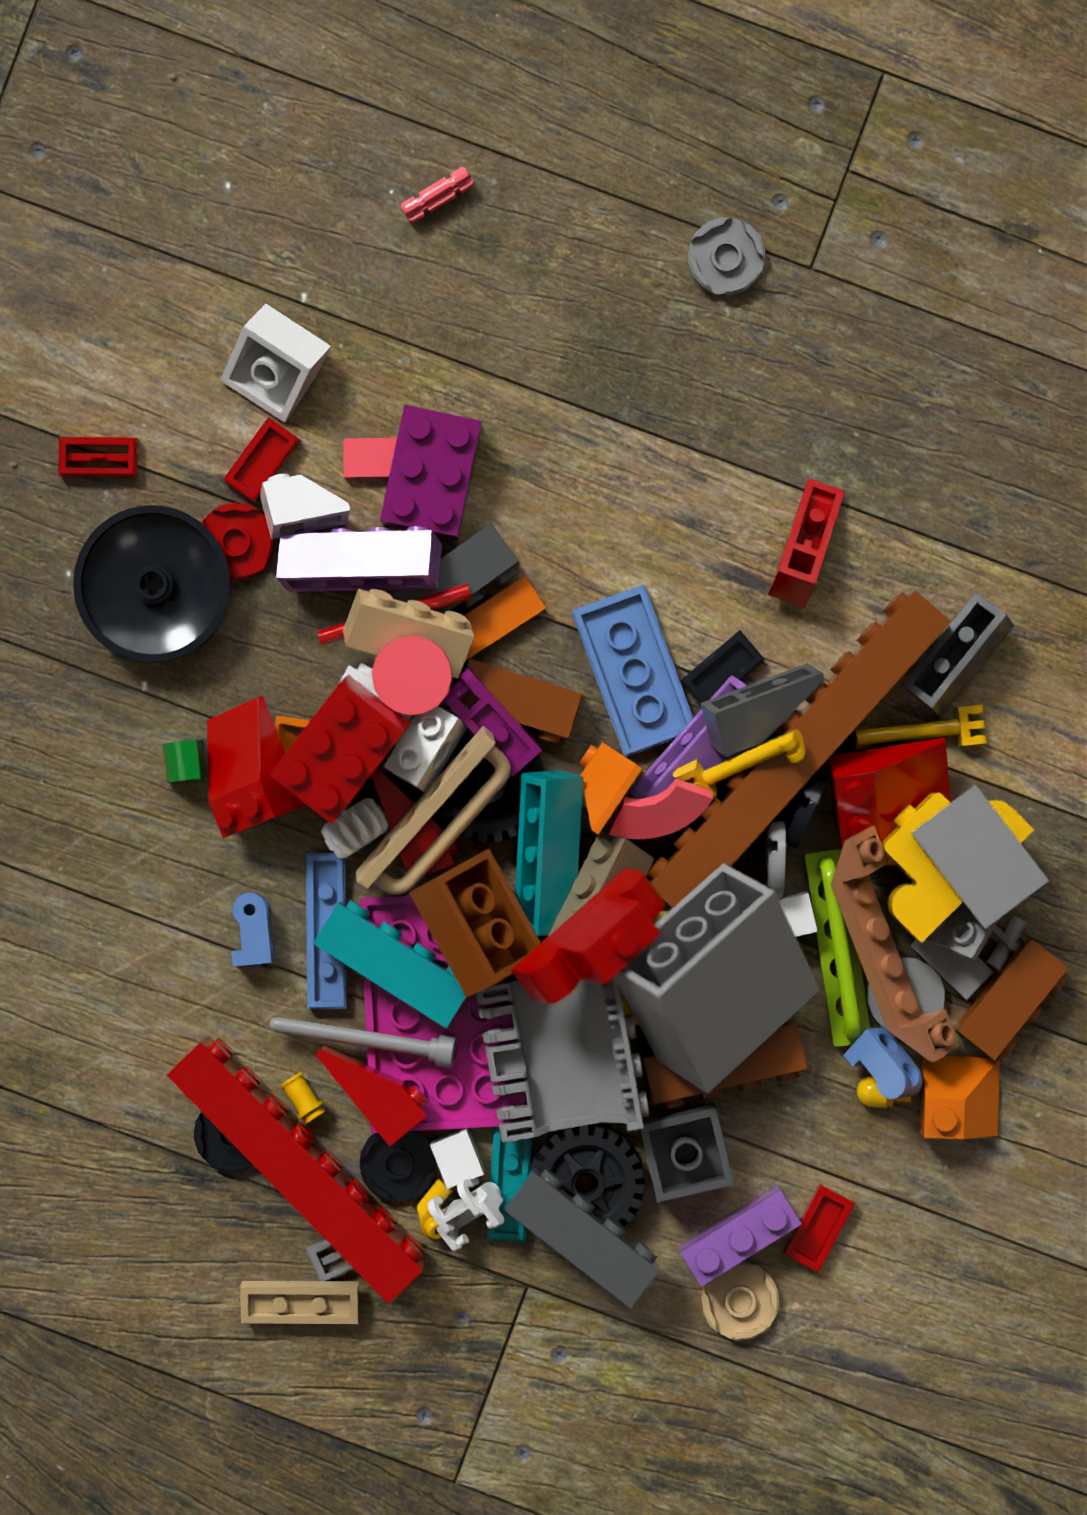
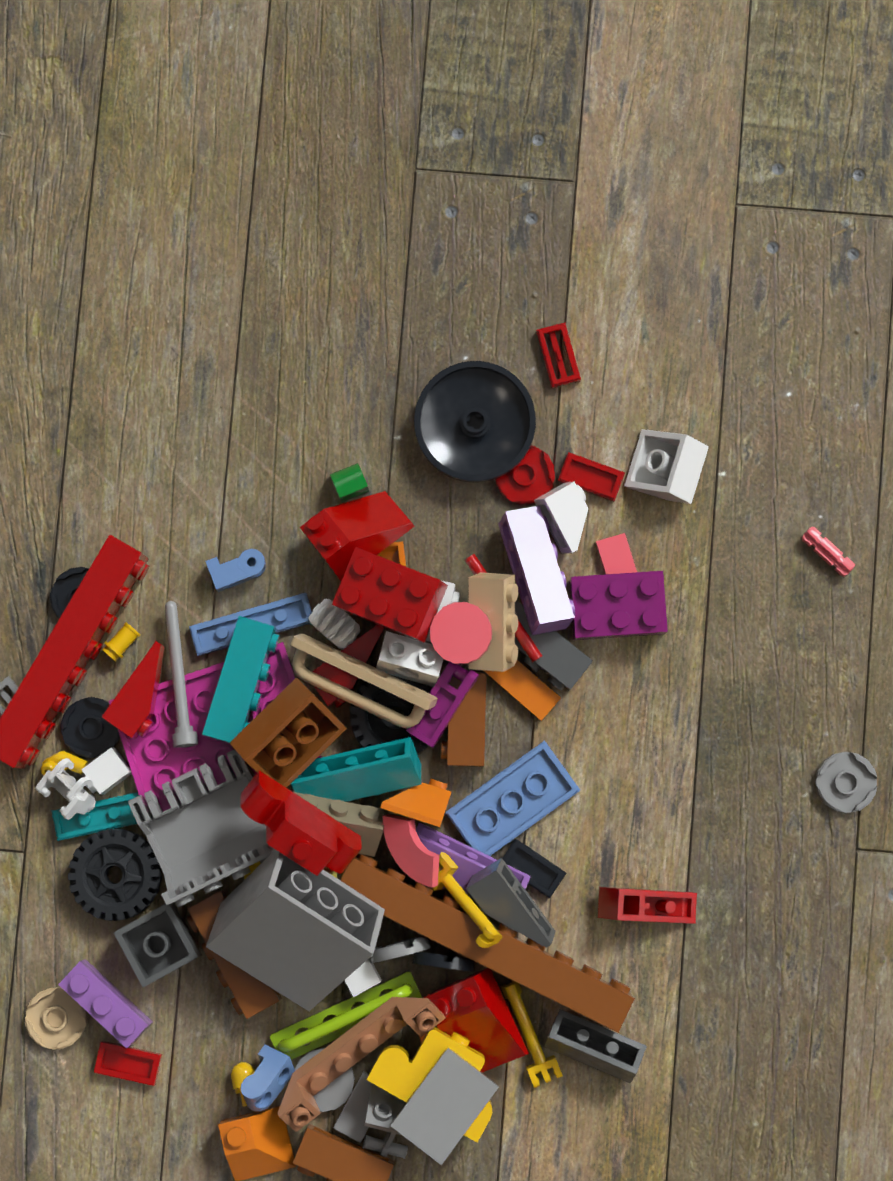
camera: 80 degrees right, 5 degrees down
(582, 1237) = (71, 883): dark grey brick -> none

